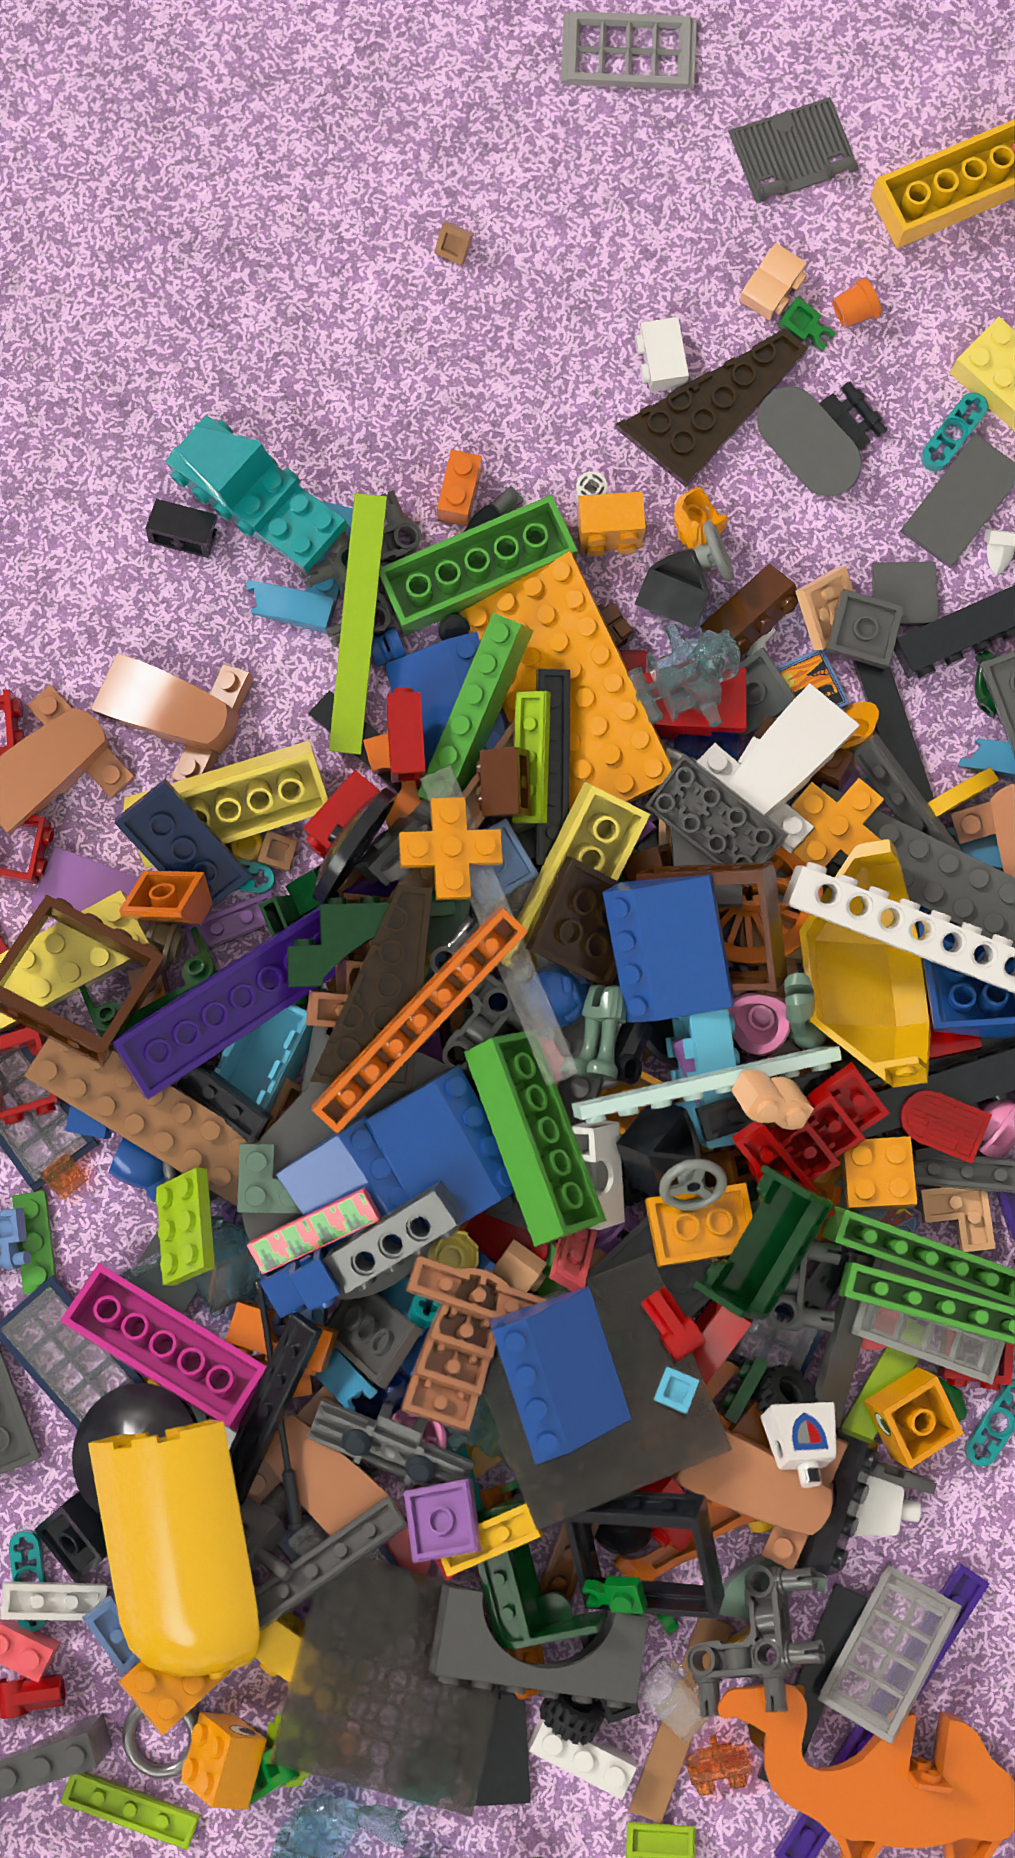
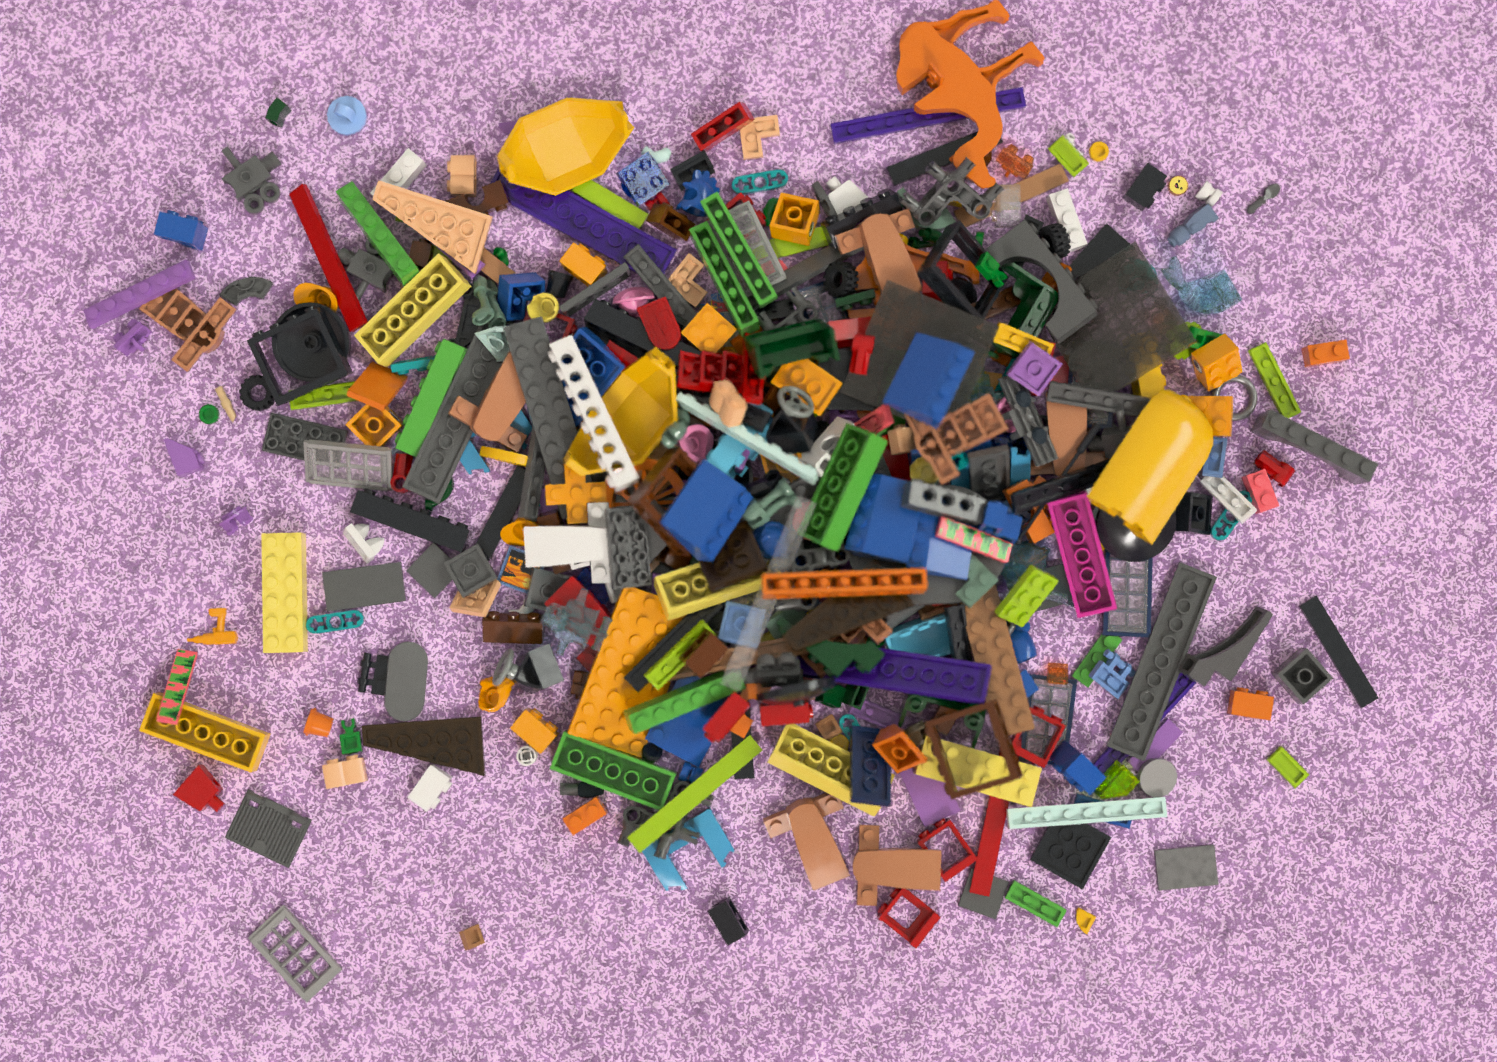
camera: 135 degrees left, 5 degrees up
(254, 492) = (681, 902): teal wedge -> none
(450, 848) = (757, 645): light orange plate -> none
(676, 1390) = (886, 325): medium azure plate -> none
(731, 1560) = (929, 238): none -> dark green plant
(802, 1438) = (853, 256): white torso -> none
(889, 1654) = (900, 137): clear piece -> none
(909, 116) = (200, 790): none -> red torso

